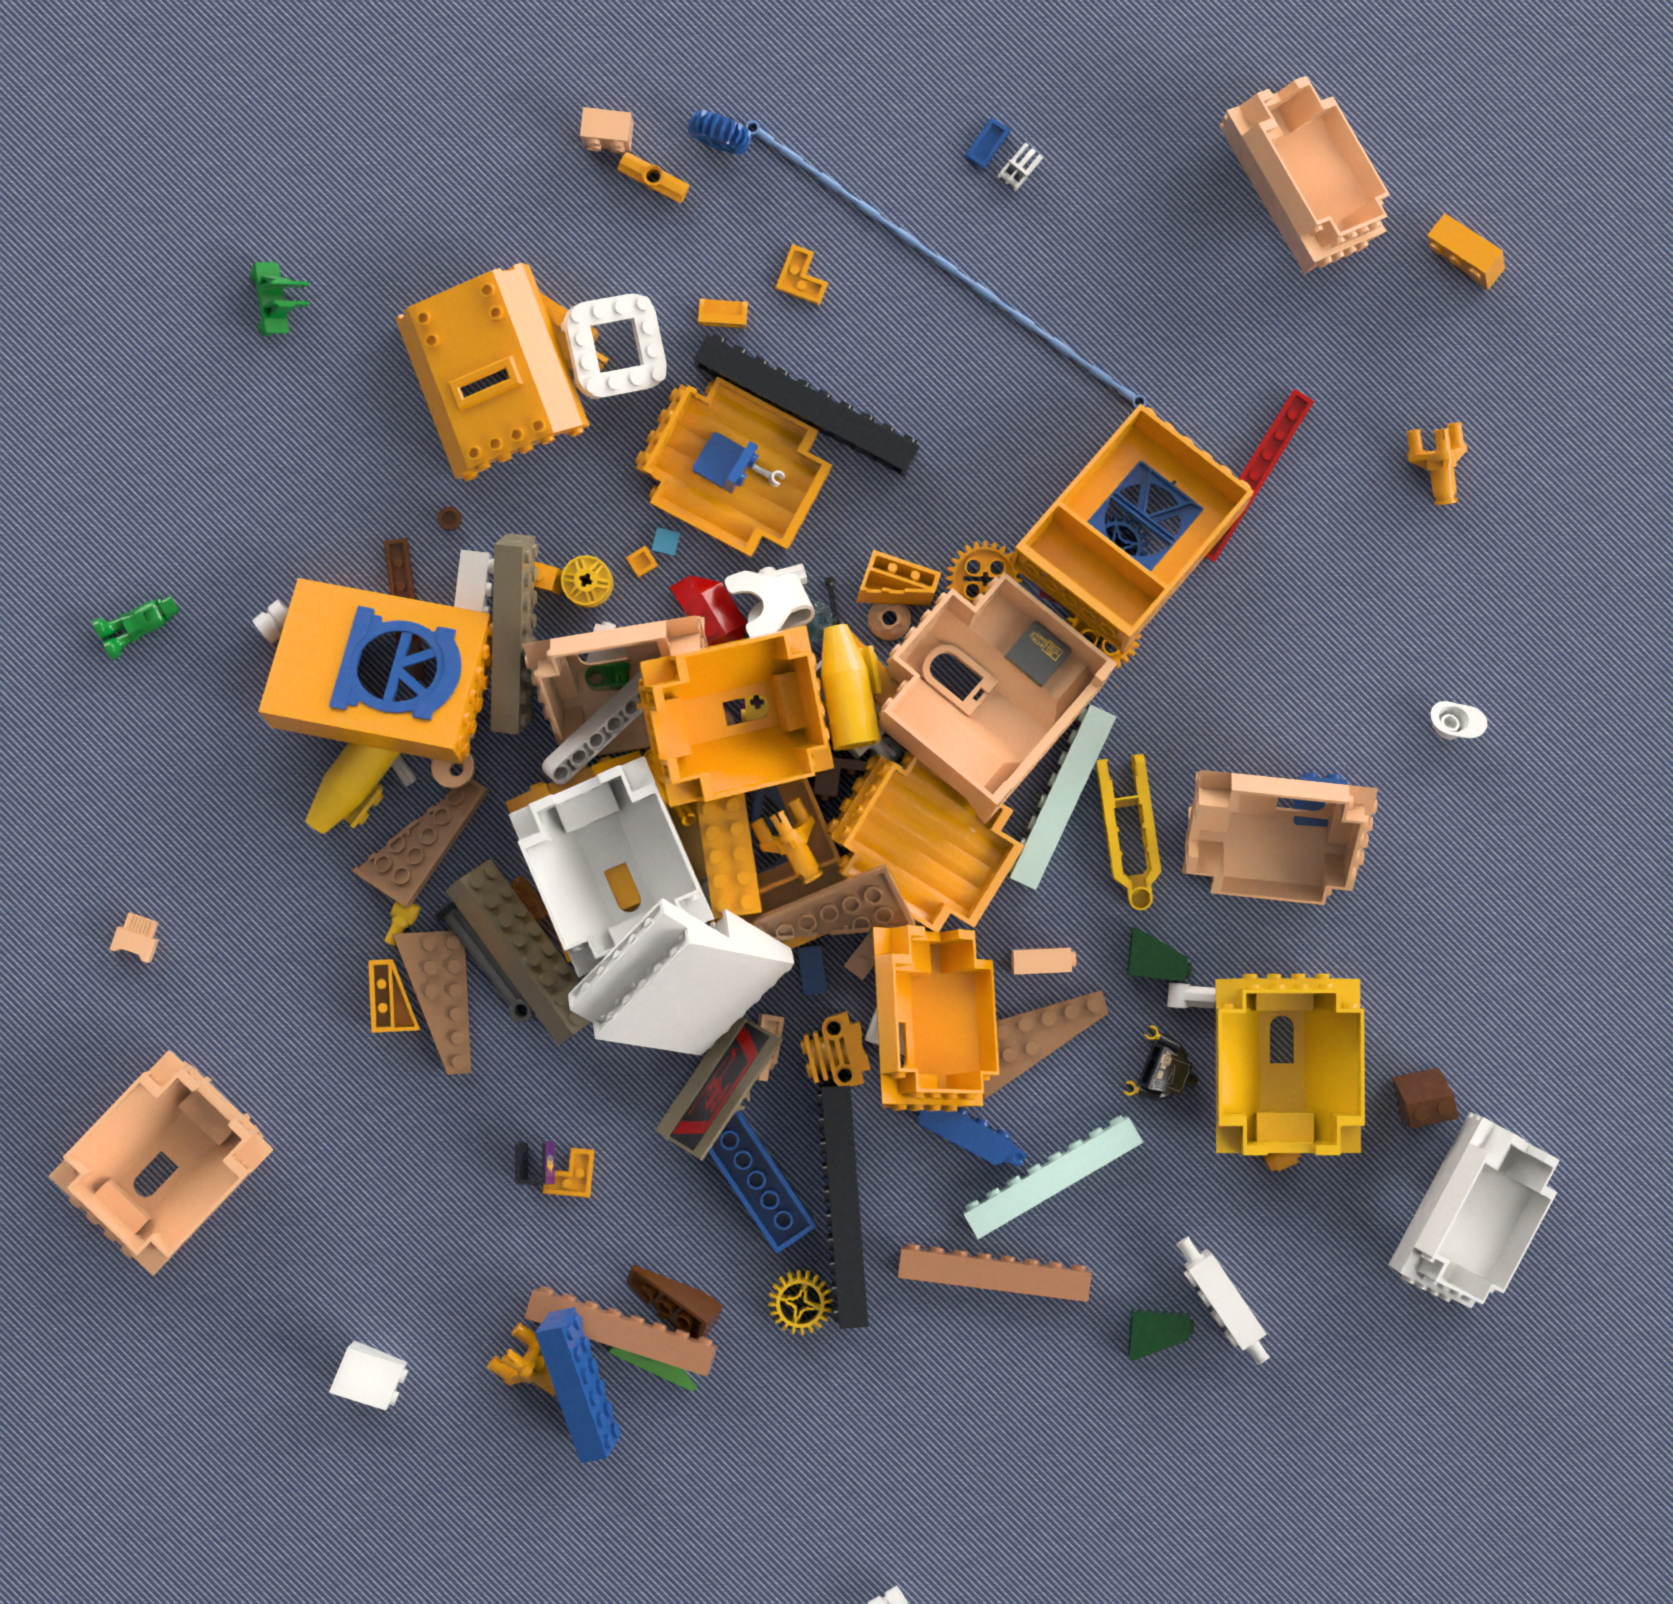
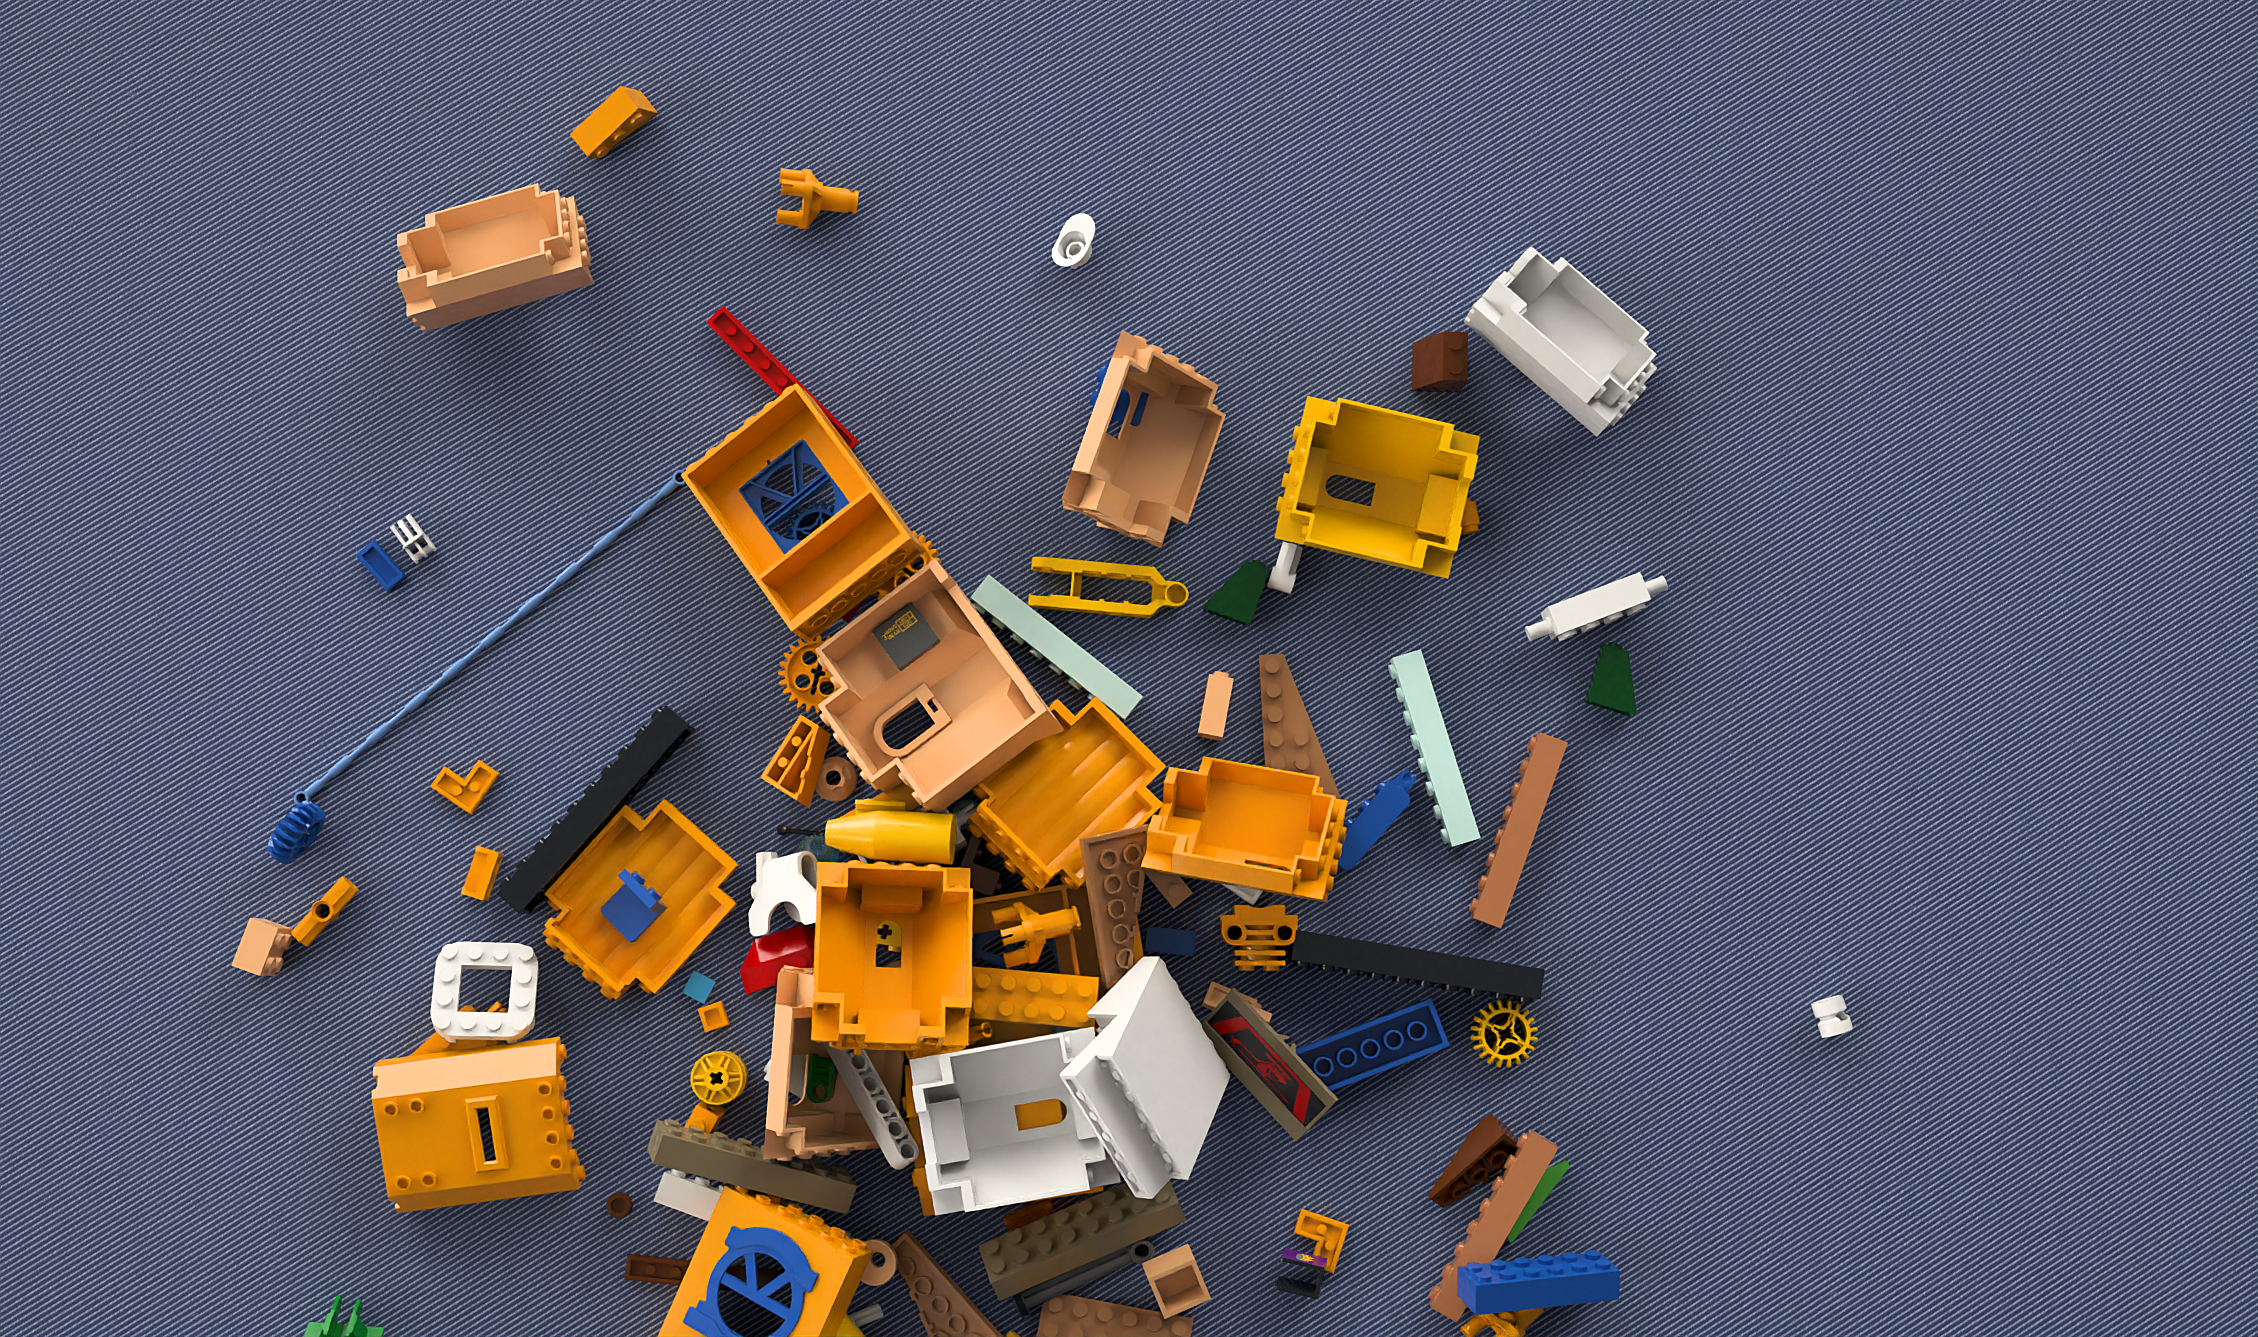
camera: 80 degrees left, 5 degrees down
(501, 1049) = (1176, 1281): none -> light nougat piece
(770, 475) = (659, 864): white hand -> none
(1165, 1070) = (1354, 611): black torso -> none

